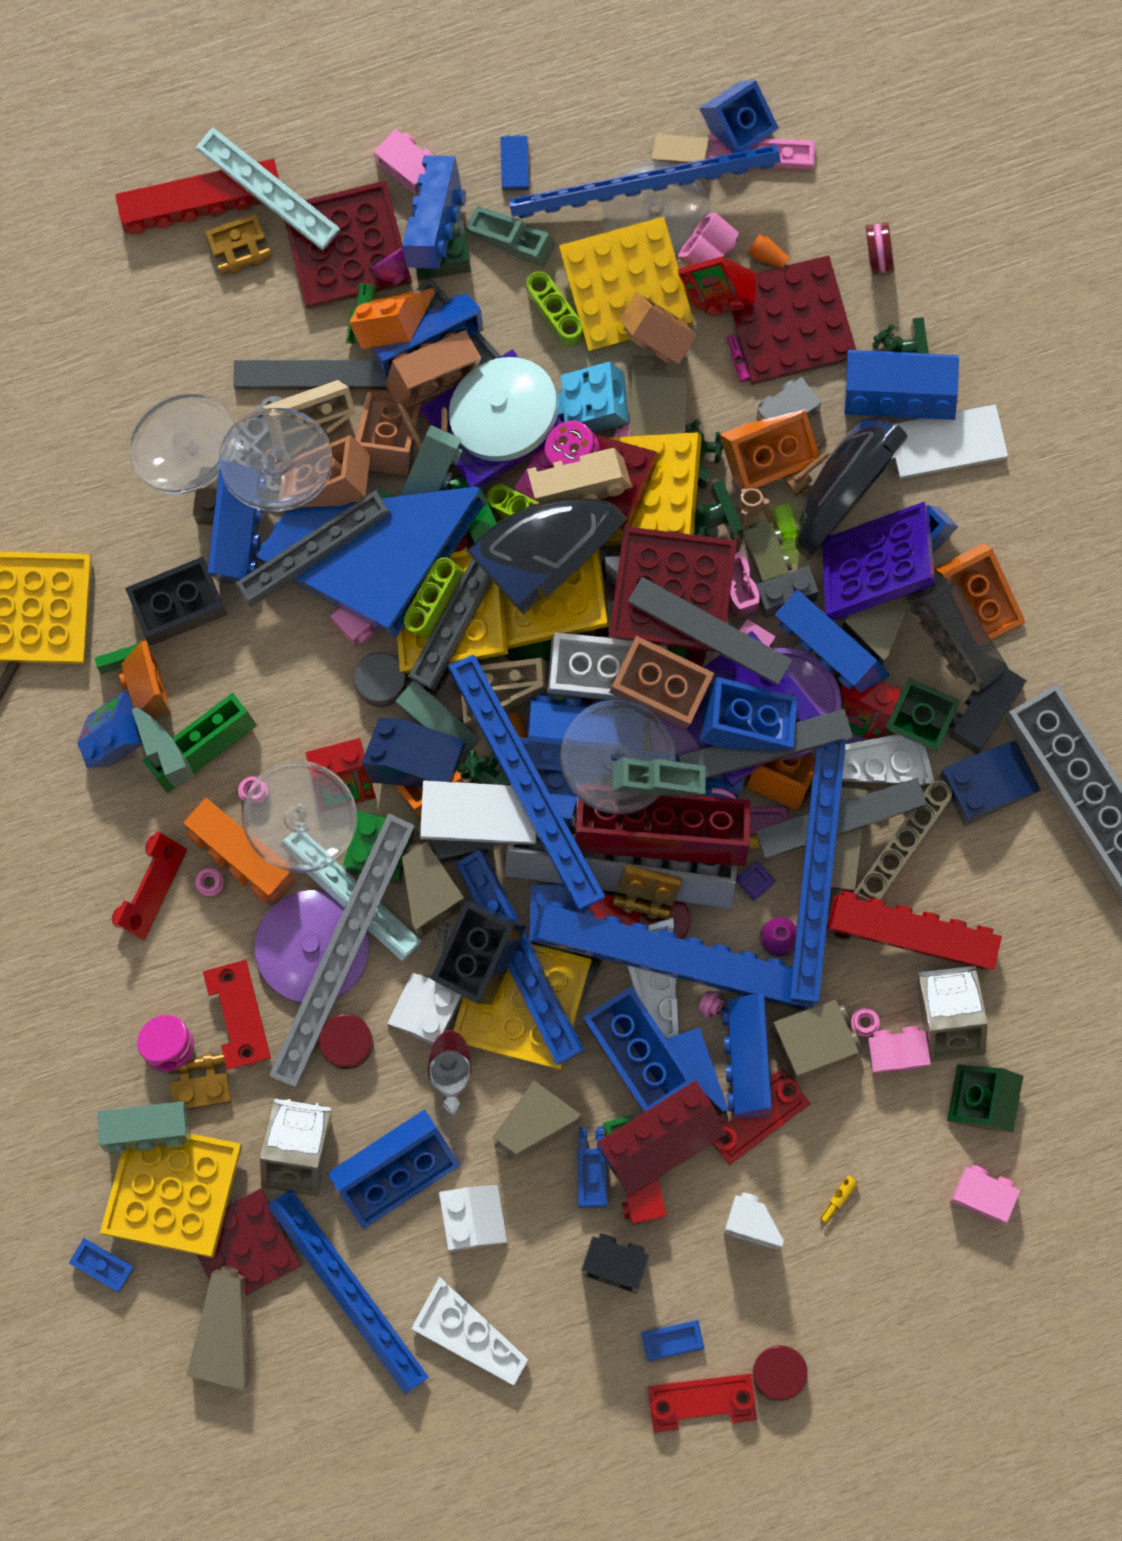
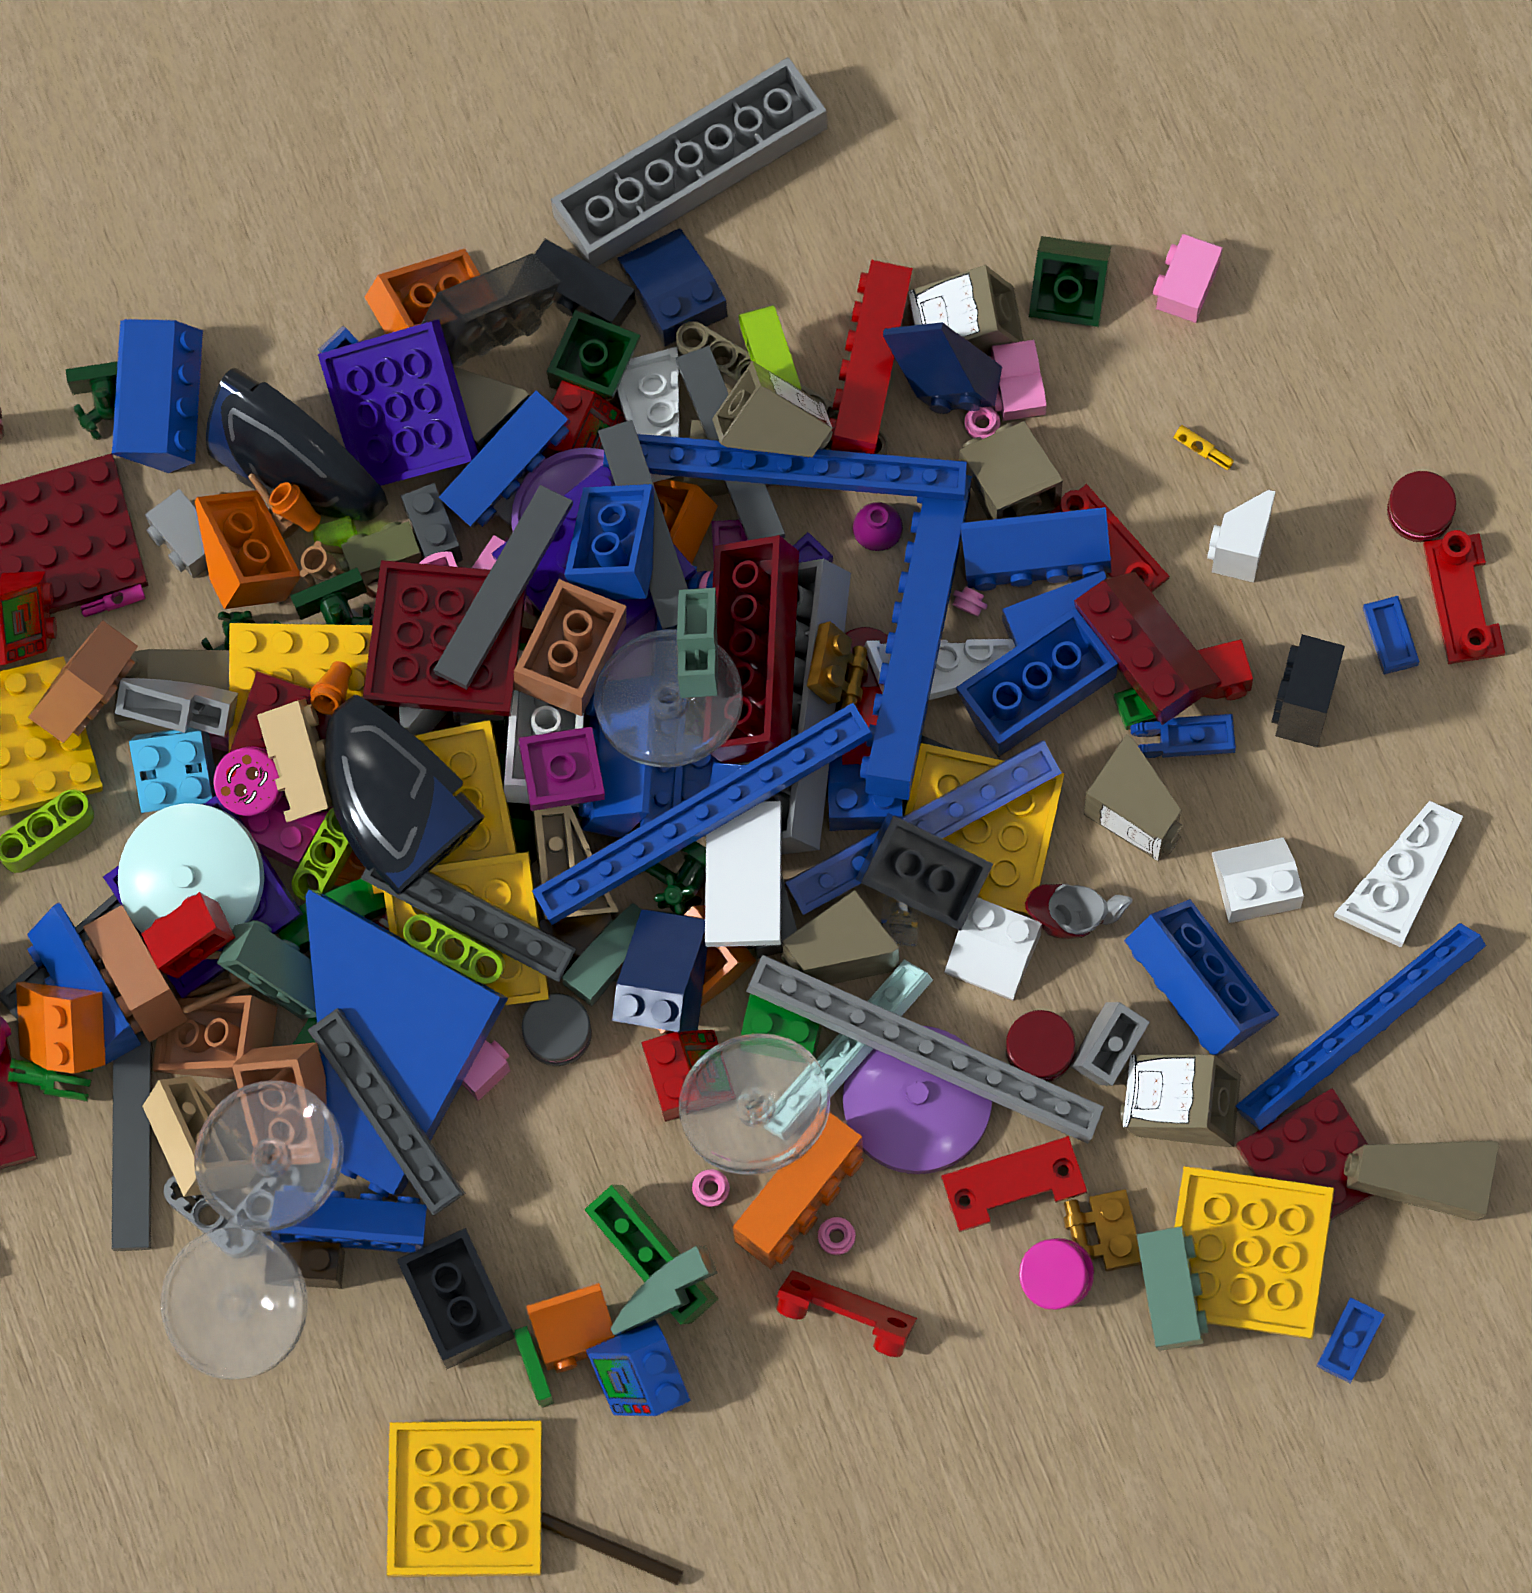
camera: 90 degrees left, 5 degrees down
(341, 1092) = (1109, 1043): none -> light grey brick
(452, 403) = (187, 935): none -> red brick
(563, 674) = (561, 768): none -> magenta plate
(633, 395) = (177, 704): none -> light grey slope
(635, 504) = (331, 688): none -> orange cone
(802, 484) = (293, 505): none -> orange cone
(854, 846) = (771, 416): none -> dark tan slope
(898, 990) = (944, 367): none -> dark blue slope
(915, 851) = (767, 343): none -> lime beam
(951, 444) = (230, 329): white tile -> none

